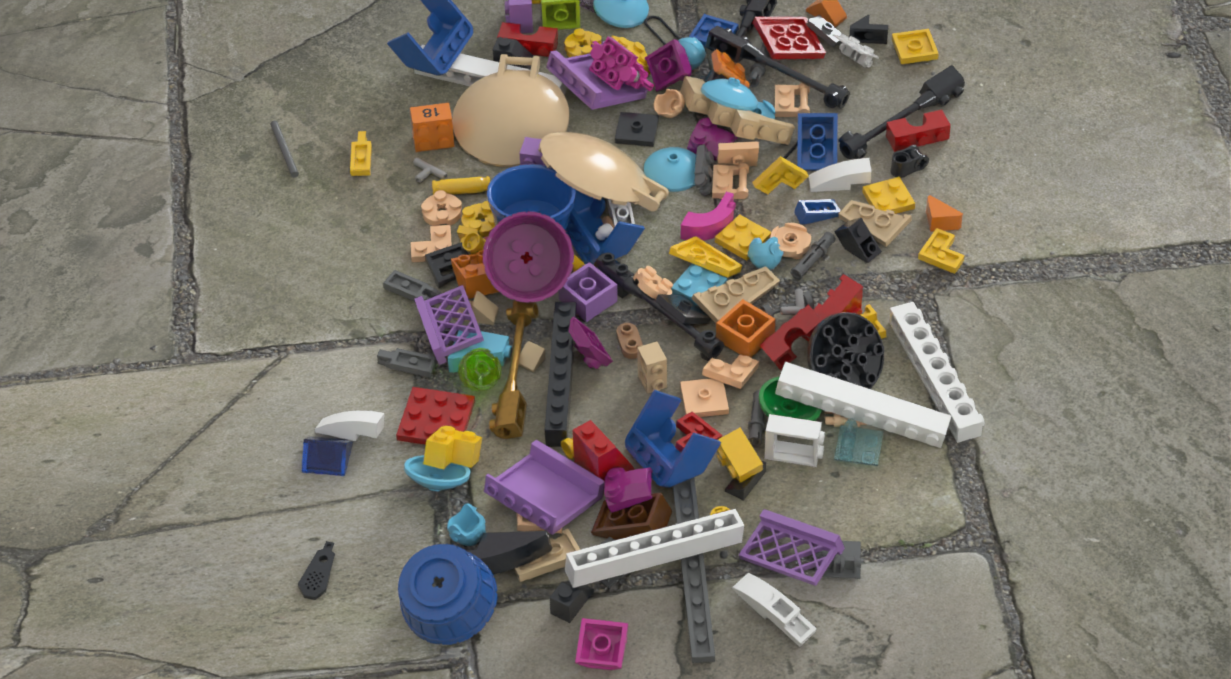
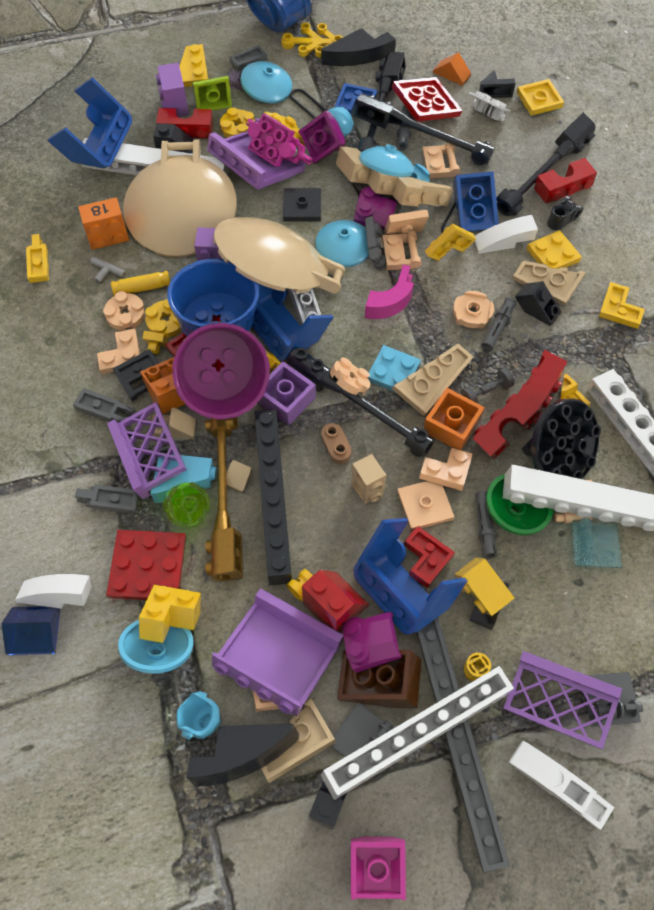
camera: 10 degrees left, 15 degrees up
(317, 575) = (34, 794): black piece -> none
(456, 608) = (207, 814): blue piece -> none
(473, 242) = (162, 351): yellow wheel -> none
(588, 344) = (297, 458): magenta slope -> none
(605, 230) = (292, 318): white arm -> none
(669, 104) = (329, 175): light nougat hair -> none
(682, 309) = (385, 402): black plate -> none
(704, 255) = (395, 337): yellow wing -> none
(724, 65) = (377, 134): orange plate -> none
(739, 235) = (425, 310): yellow plate -> none
(765, 253) = (454, 331): medium azure cap -> none
(789, 451) = (534, 554): white window -> none
(791, 310) = (500, 390): light grey piece -> none
(809, 210) = (481, 281): blue slope -> none
(824, 30) = (457, 89): dark grey plate -> none
(942, 215) = (610, 267): orange slope -> none

